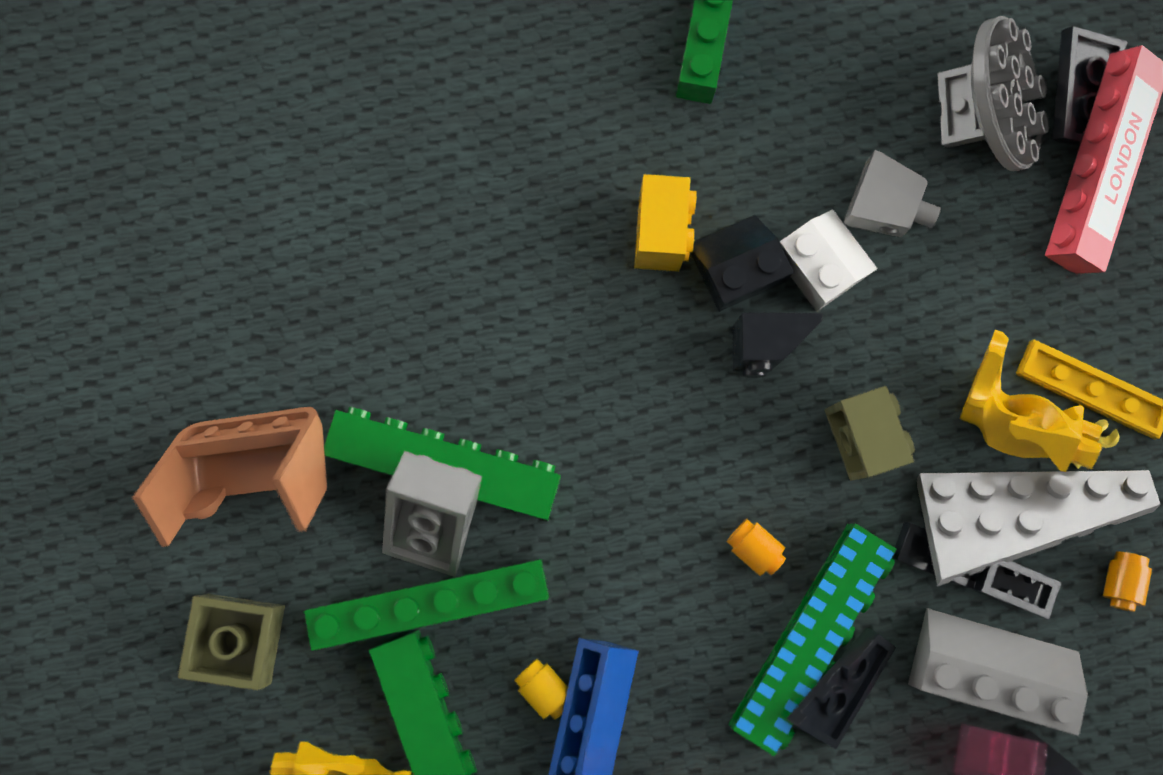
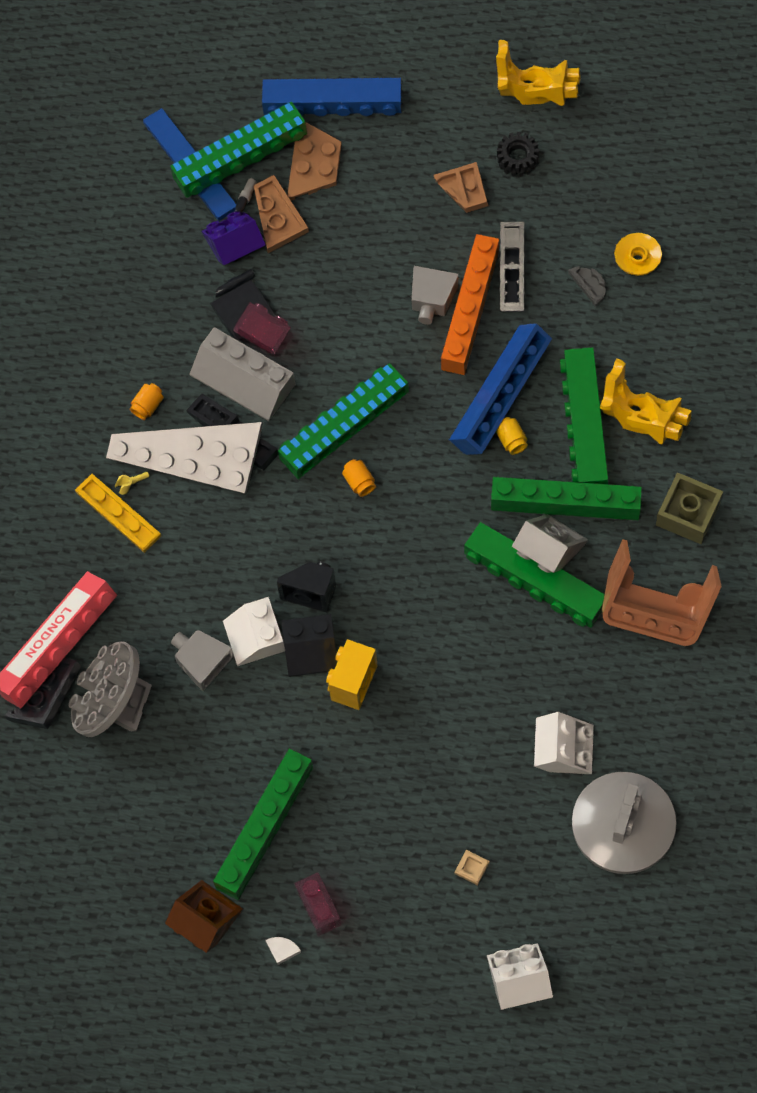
camera: 155 degrees left, 15 degrees down
(223, 136) = (623, 822): none -> light grey bracket
(334, 218) = (563, 744): none -> white slope
(416, 21) = (472, 867): none -> tan tile
(843, 689) = (336, 387): black wing -> none
(870, 433) = (269, 516): olive brick -> none
(1027, 422) = (160, 494): yellow hips -> none

